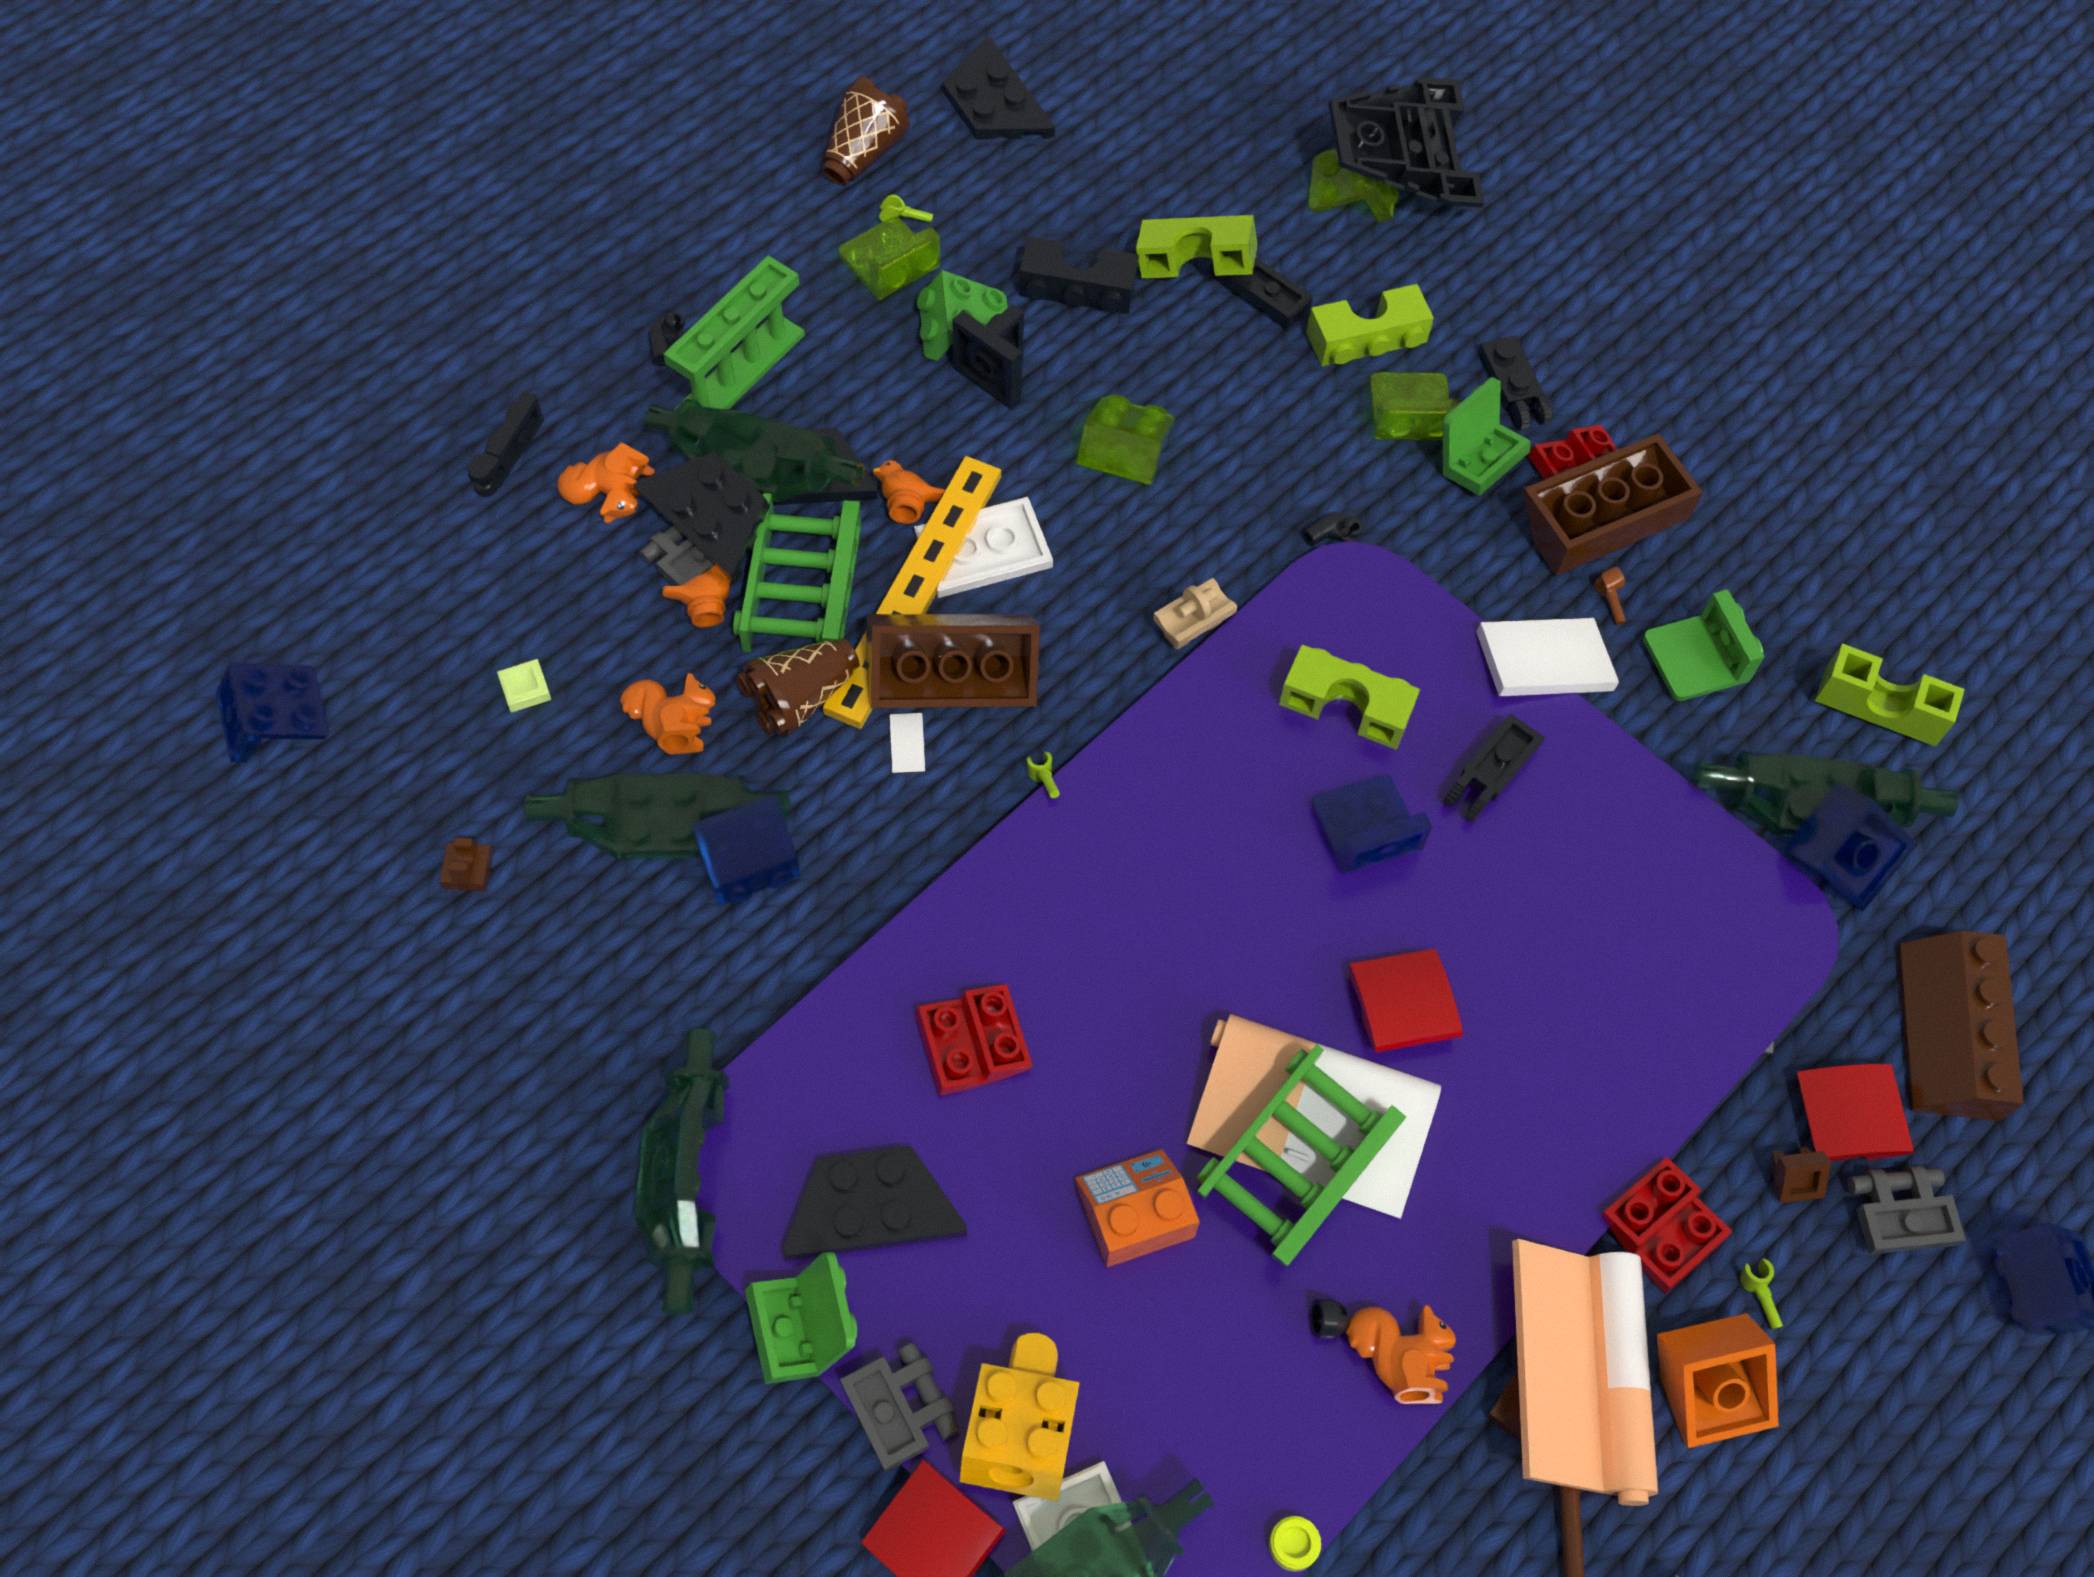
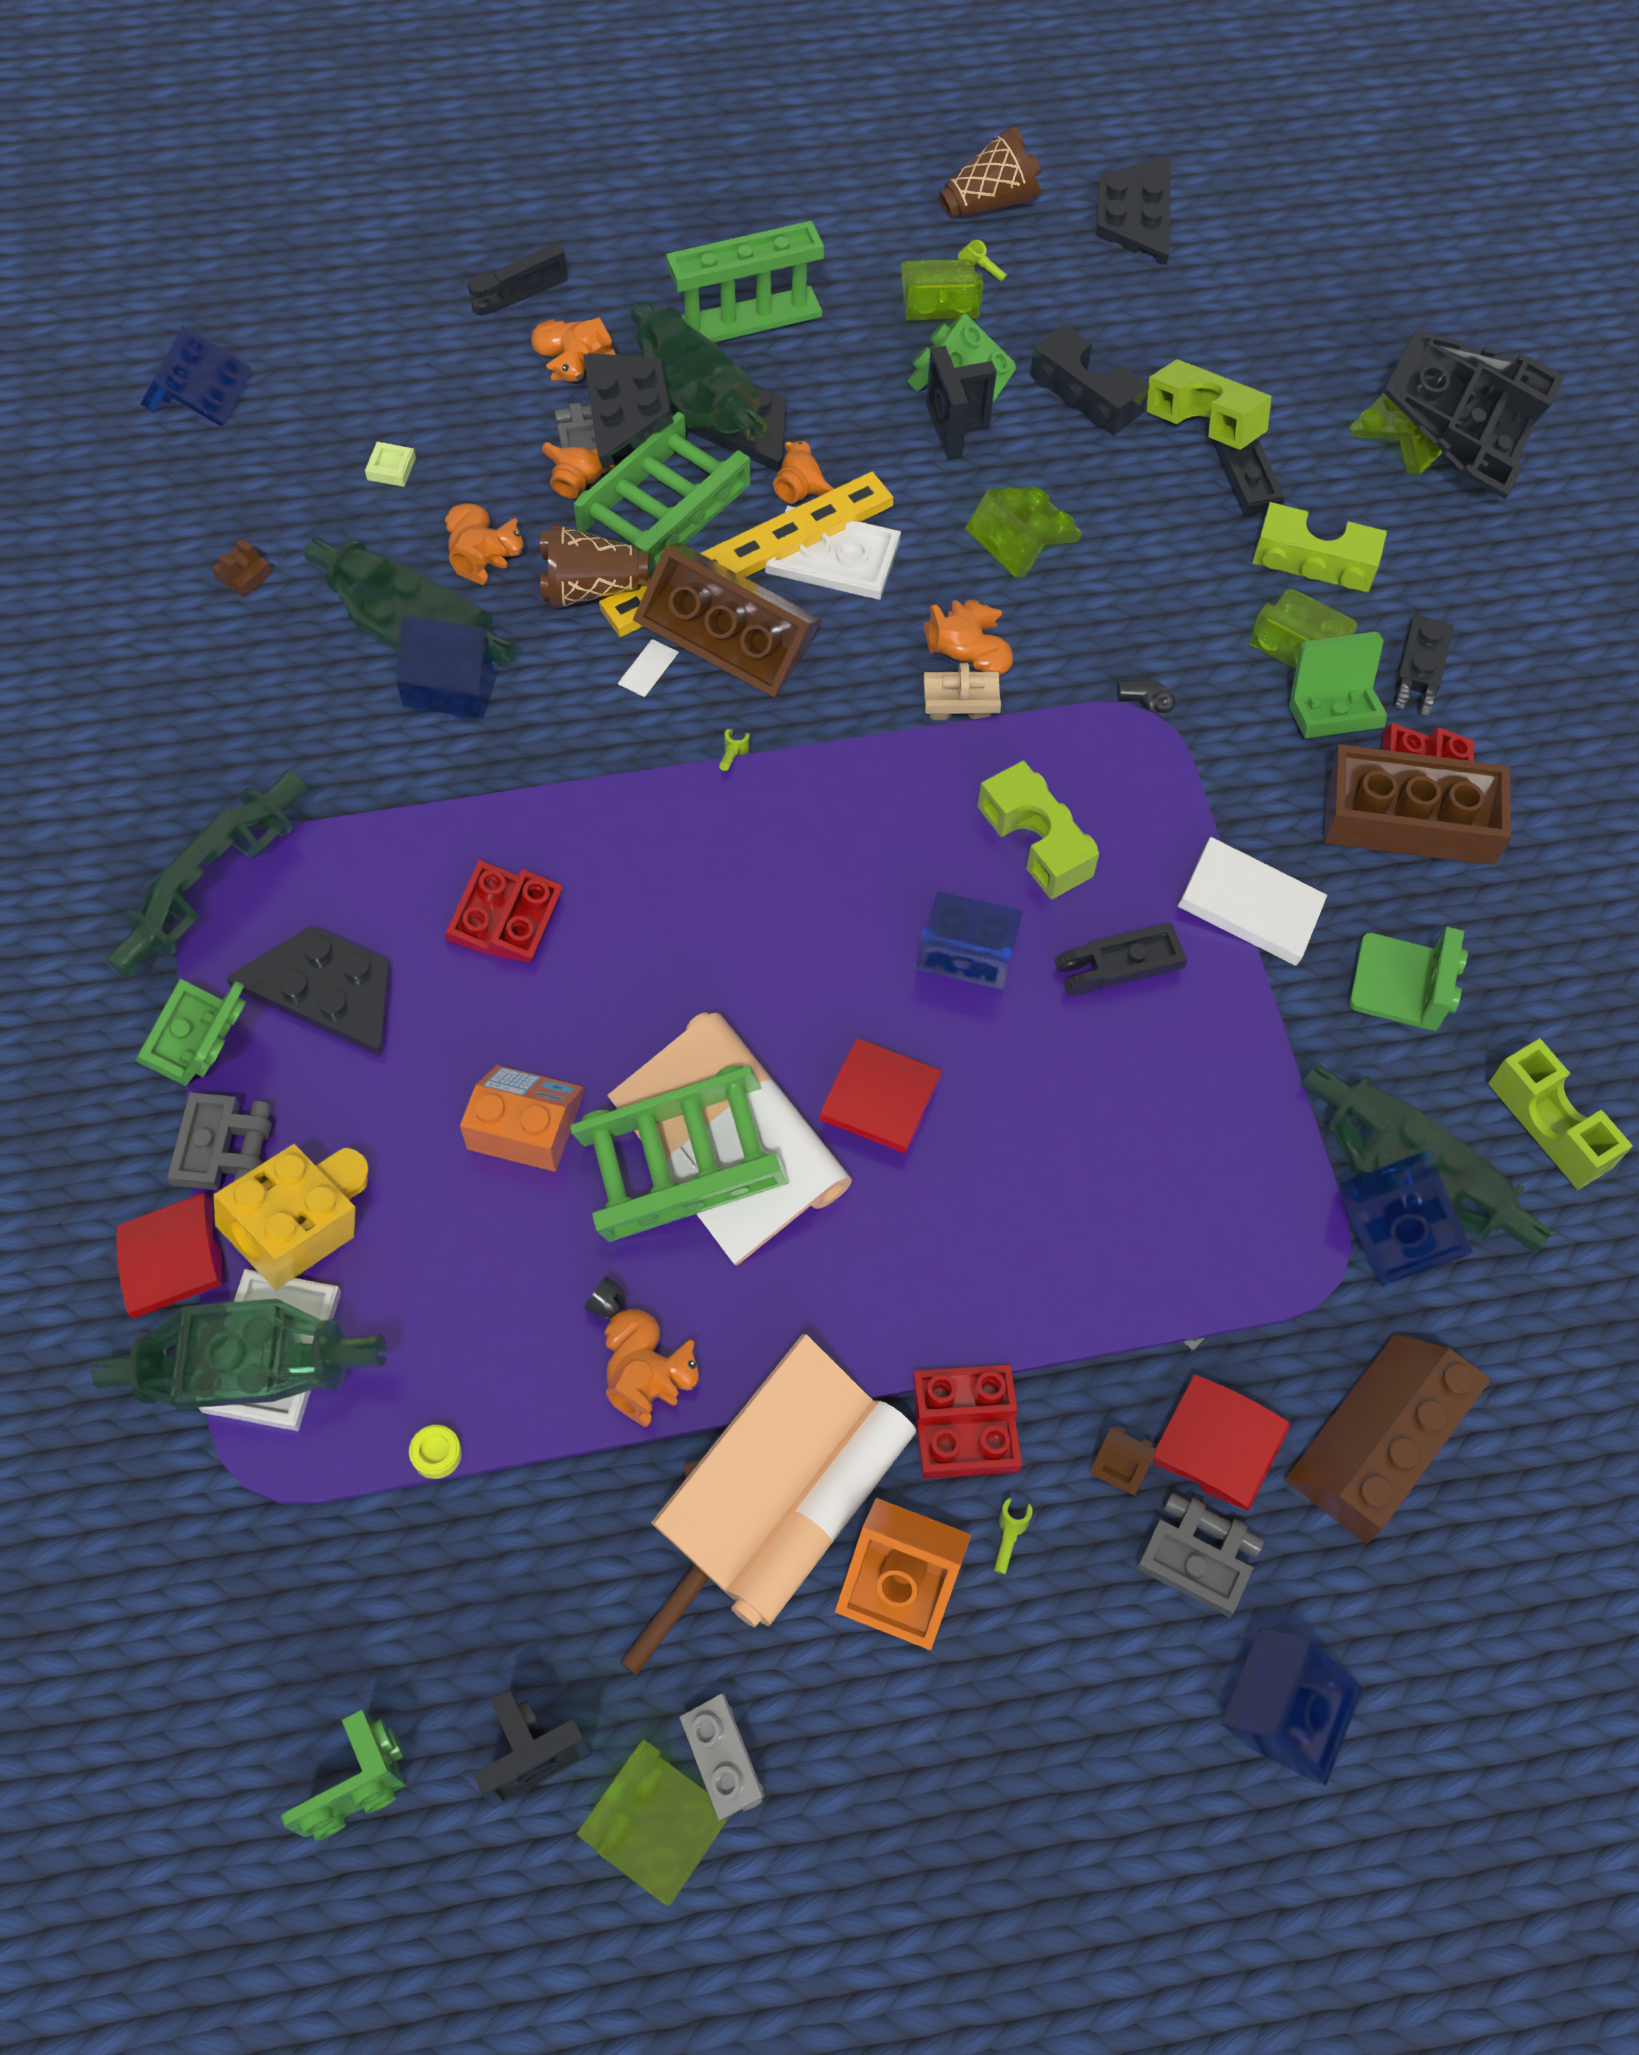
camera: 35 degrees right, 0 degrees up
(1152, 564) = (962, 636): none -> orange animal
(1607, 585) = (1368, 875): dark orange hand -> none

